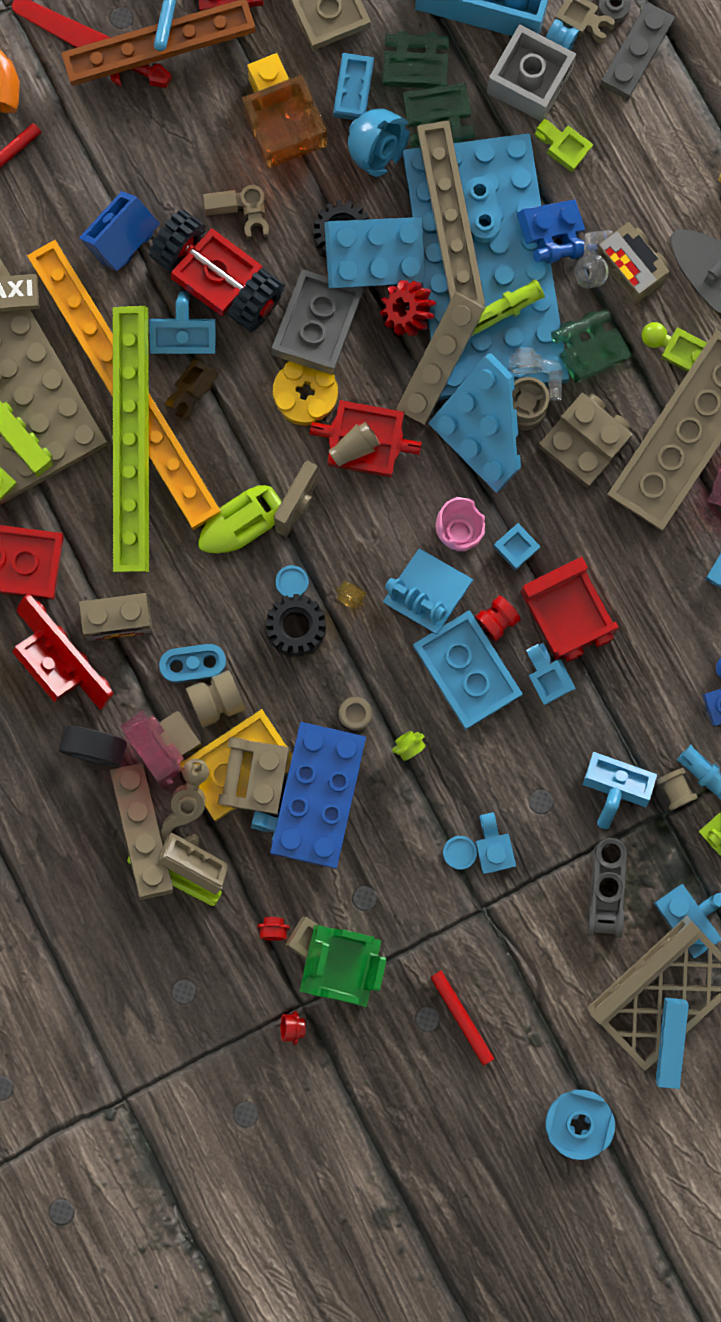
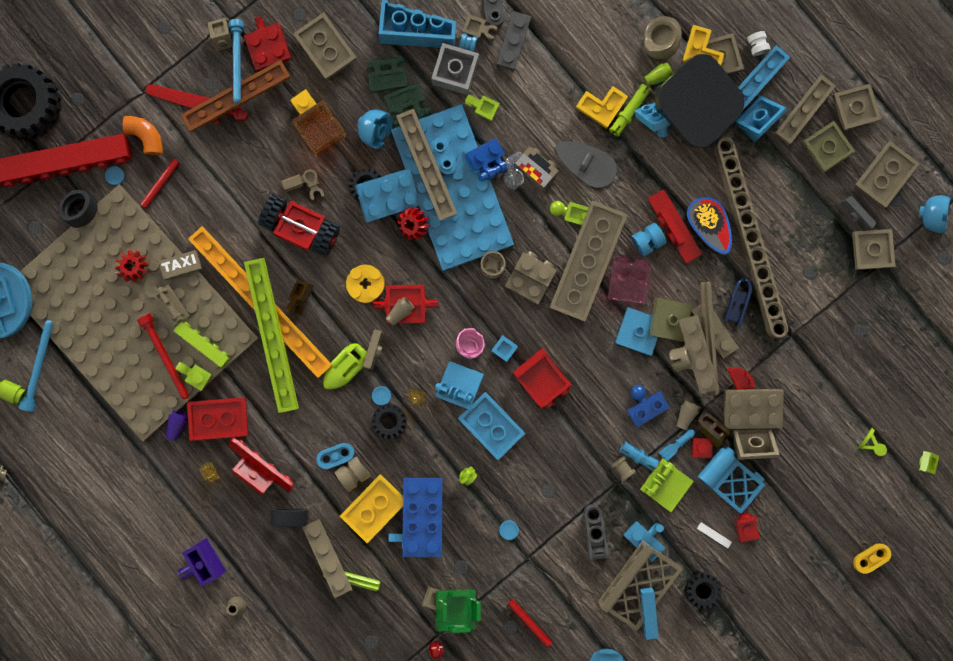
camera: 15 degrees left, 5 degrees up
(116, 617) = (286, 439): dark tan brick -> none
(119, 231) = (238, 213): blue brick -> none
(159, 758) = (326, 516): clear pink plate -> none
(180, 734) = (335, 501): dark tan panel -> none
(182, 334) = (287, 265): dark azure plate -> none
(188, 800) = (350, 539): dark tan piece -> none
(193, 863) = (360, 571): dark tan plate -> none
(264, 780) = (389, 511): dark tan plate -> none
(273, 929) = (413, 597): red plate -> none
(316, 323) = (363, 243): dark grey plate -> none
(353, 86) = (354, 97): dark azure plate -> none
(355, 714) = (433, 464): dark tan tile -> none
(440, 357) = (438, 249): dark tan plate -> none
(482, 423) = (470, 282): dark azure plate -> none
(495, 850) = (528, 524): dark azure plate -> none
(497, 618) = (502, 392): red wheel -> none
(509, 305) = (468, 212): lime pin -> none
(529, 362) = (488, 241): clear plate -> none
(551, 678) = (539, 420): dark azure plate -> none
(595, 354) = (526, 227): clear green plate -> none
(619, 782) = (589, 471): plate -> none

